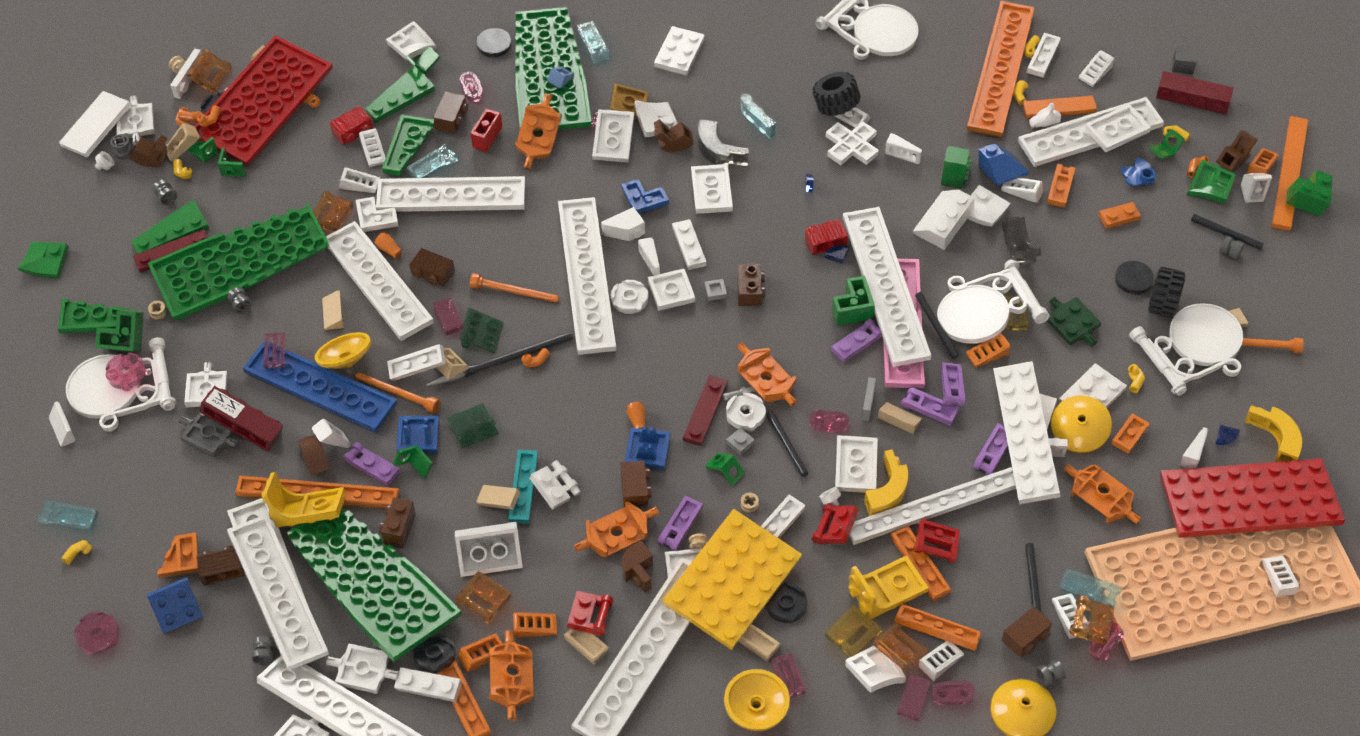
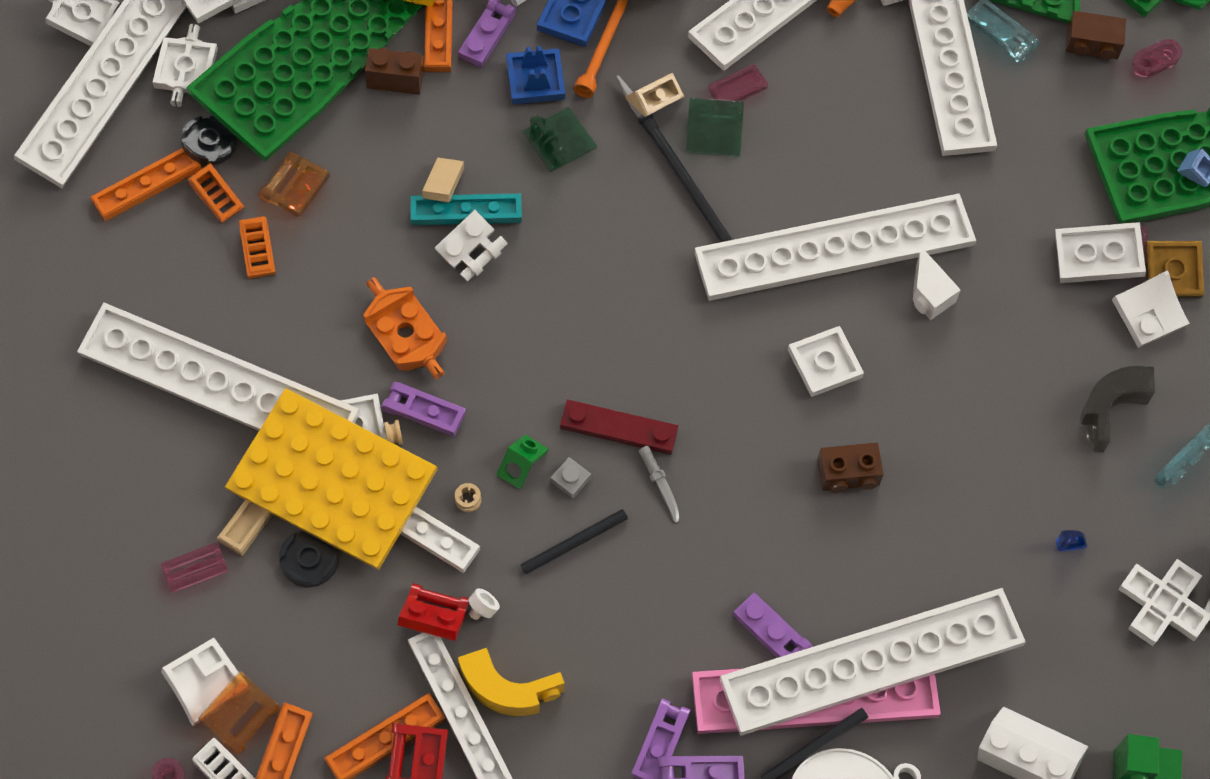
camera: 80 degrees right, 10 degrees up
(416, 362) = (644, 54): white plate -> none
(416, 458) = (500, 71): green bracket -> none
(428, 684) = (163, 138): white plate -> none
(432, 267) = (813, 53): reddish brown brick -> none
(477, 281) = (800, 112): orange piece -> none
(486, 130) = (1071, 83): red brick -> none
(488, 549) = (365, 178): white slope -> none
(509, 689) = (201, 232): orange plate -> none
(529, 361) = (675, 200): orange arm -> none
(538, 117) = (1061, 143): orange plate -> none
(583, 610) = (276, 301): plate -> none
(587, 644) = (235, 313): tan tile -> none
(629, 297) = (807, 309): white tile -> none
(634, 483) = (477, 341): reddish brown brick -> none
(634, 563) = (349, 353): reddish brown brick -> none
(636, 414) = (594, 337): orange cone -> none
(642, 200) = (986, 305): plate -> none
(648, 446) = (542, 355): blue plate -> none
(649, 254) = (883, 326): white slope -> none
(674, 138) = (1112, 333): reddish brown brick -> none
(689, 244) = (917, 380): white plate -> none
(711, 189) = (1027, 400): white plate -> none
(715, 290) = (834, 421): light grey plate -> none
(745, 421) = (627, 494): white plate -> none
(757, 688) = (138, 506): yellow dish -> none
(760, 363) = (696, 482): orange plate -> none
(826, 235) = (962, 570): red brick -> none
(829, 422) = (620, 596): clear pink plate -> none
(837, 253) = (936, 592): clear blue tile -> none
(847, 627) = (269, 640): clear yellow plate -> none
(856, 304) = (829, 619): green brick -> none
(856, 463) = (544, 638): white plate -> none
(869, 399) = (660, 650): light grey tile -> none
(886, 587) = (333, 685): yellow bracket -> none
(899, 417) = (638, 699): tan slope -> none
(902, 149) = (1169, 673): white slope -> none
(913, 697) = (164, 736): clear pink tile -> none

